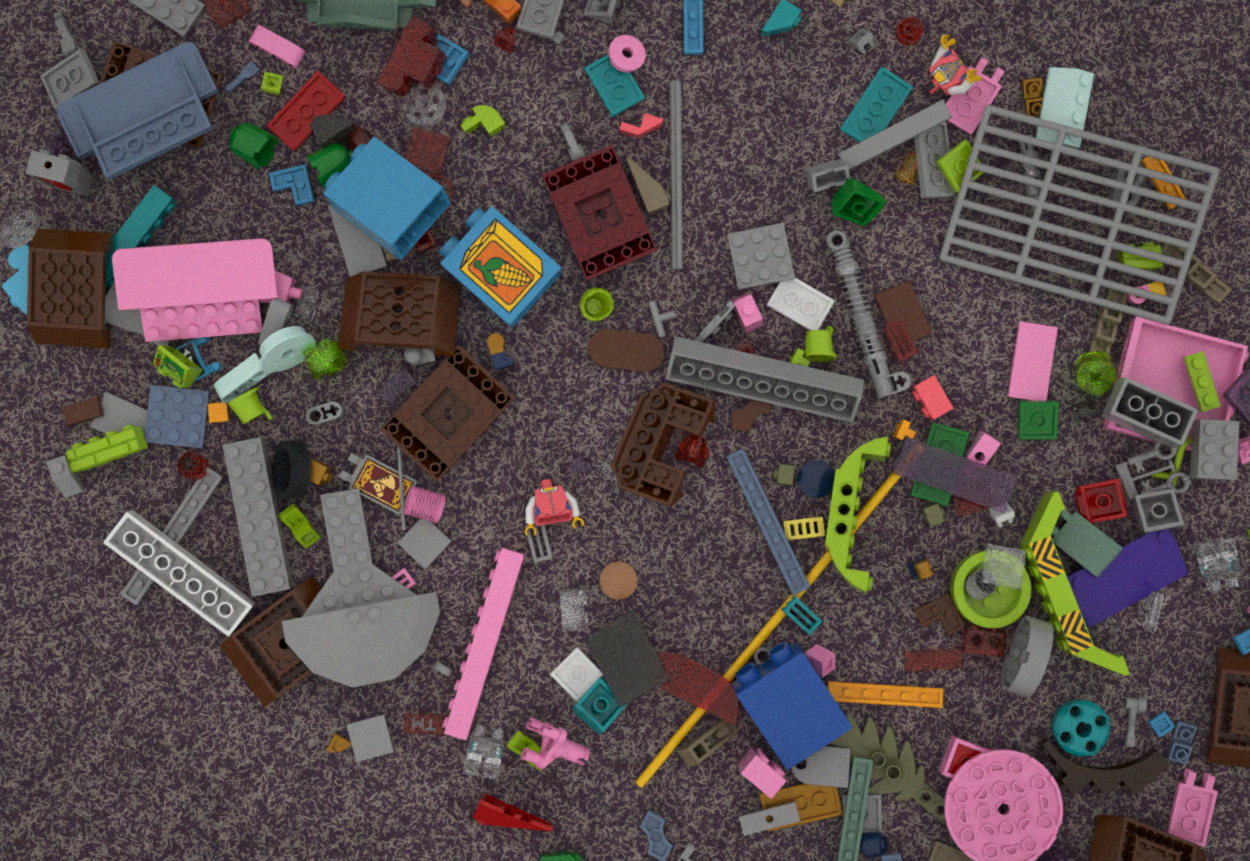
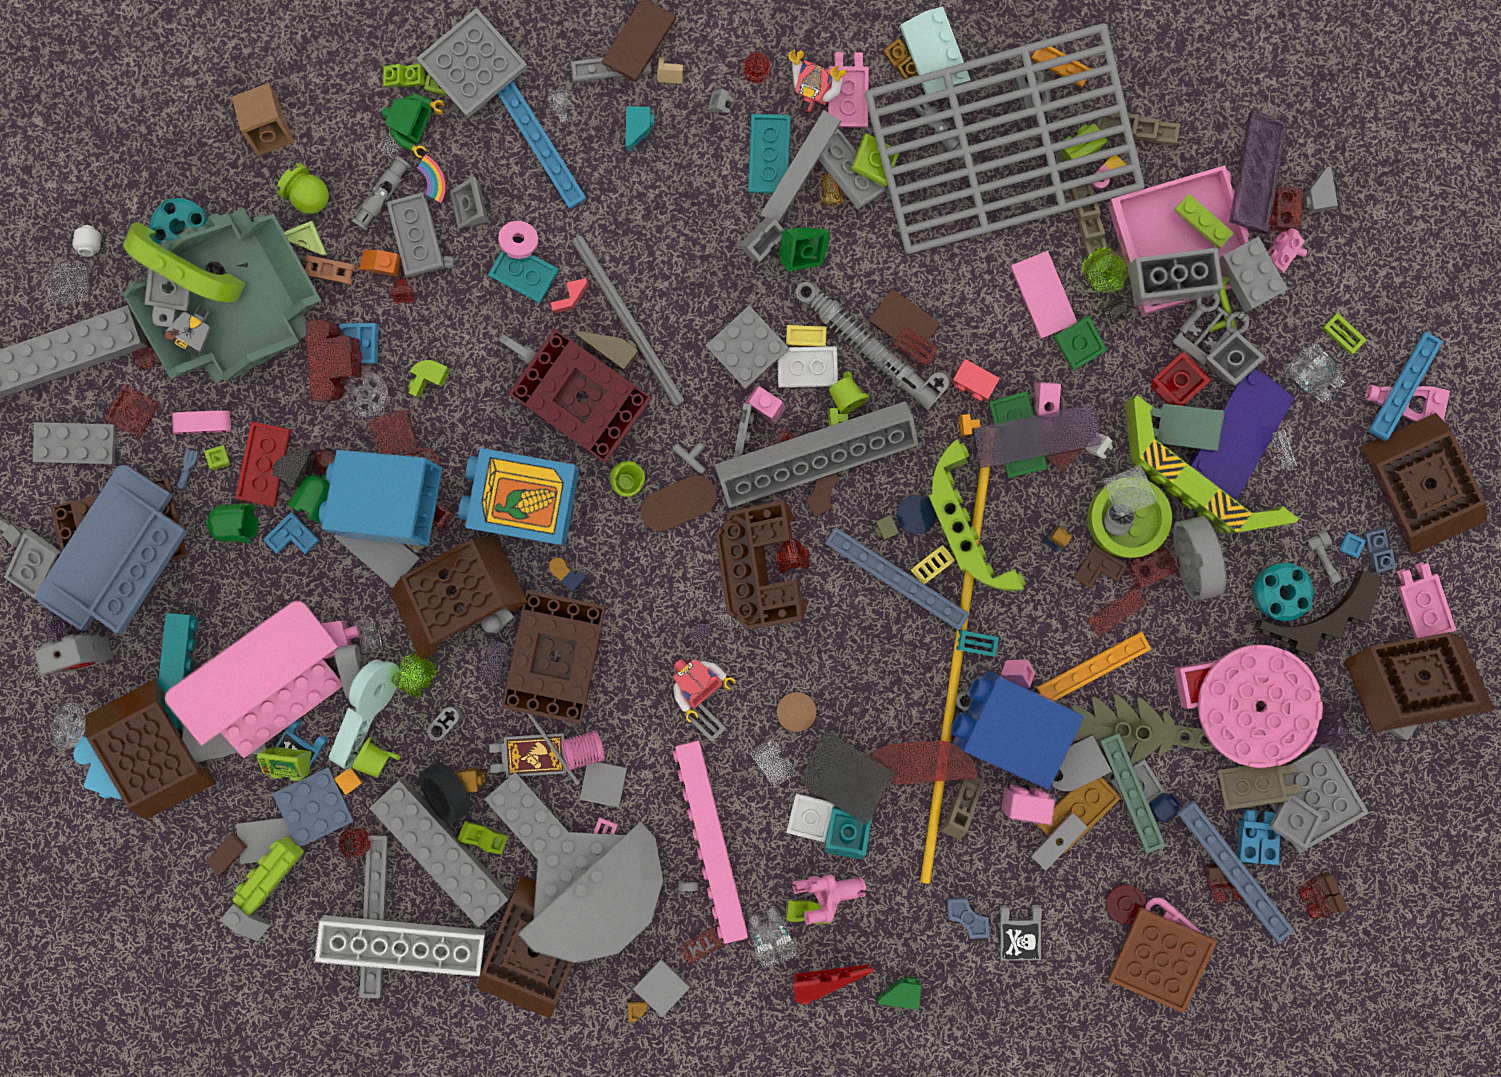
camera: 30 degrees left, 0 degrees up
(815, 276) = (806, 336): none -> light yellow tile
(933, 514) = (1039, 483): olive plate -> none

